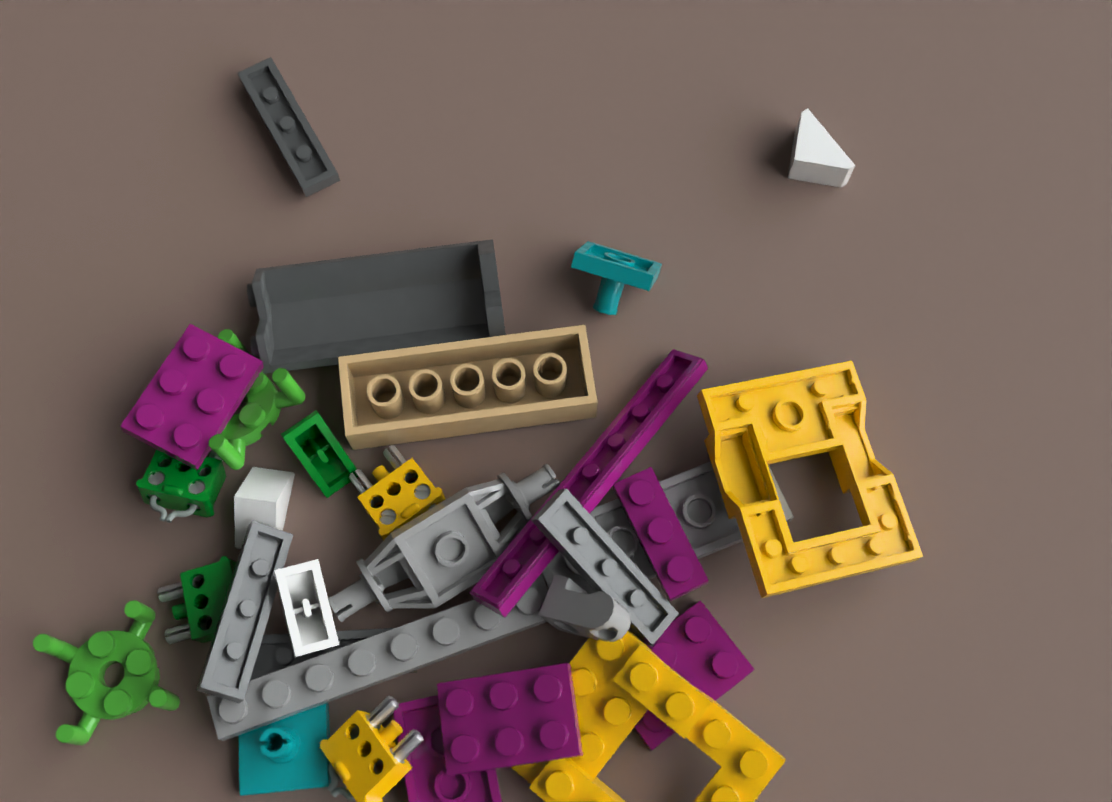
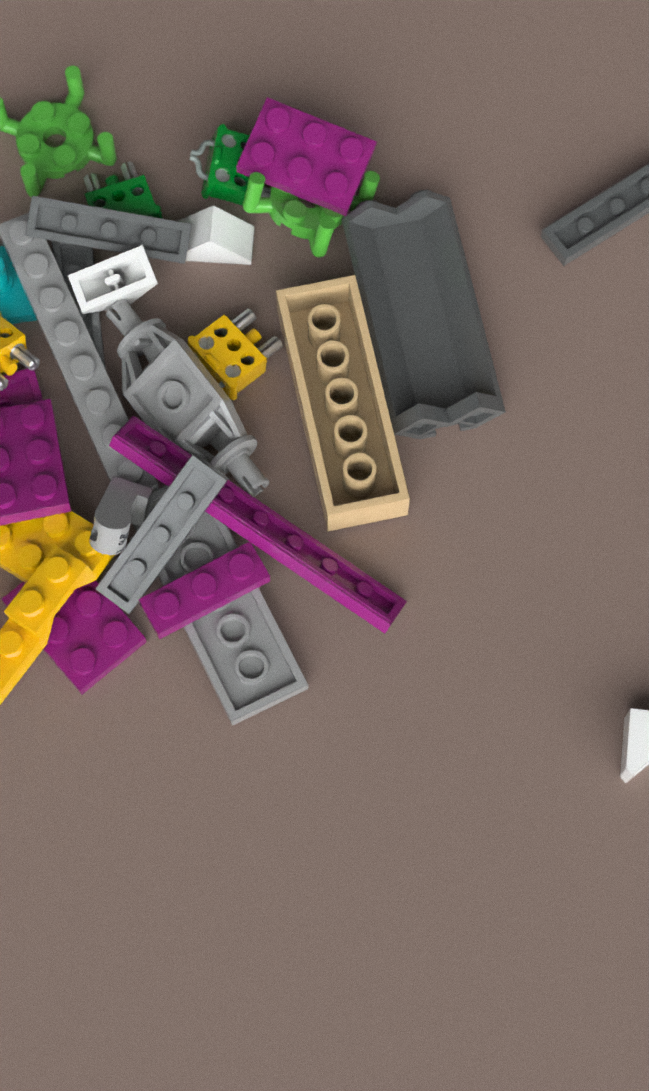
camera: 85 degrees right, 0 degrees up
(320, 453) = (269, 271): green slope -> none
(616, 270) = (483, 532): teal tile -> none
(792, 419) = (327, 706): yellow piece -> none

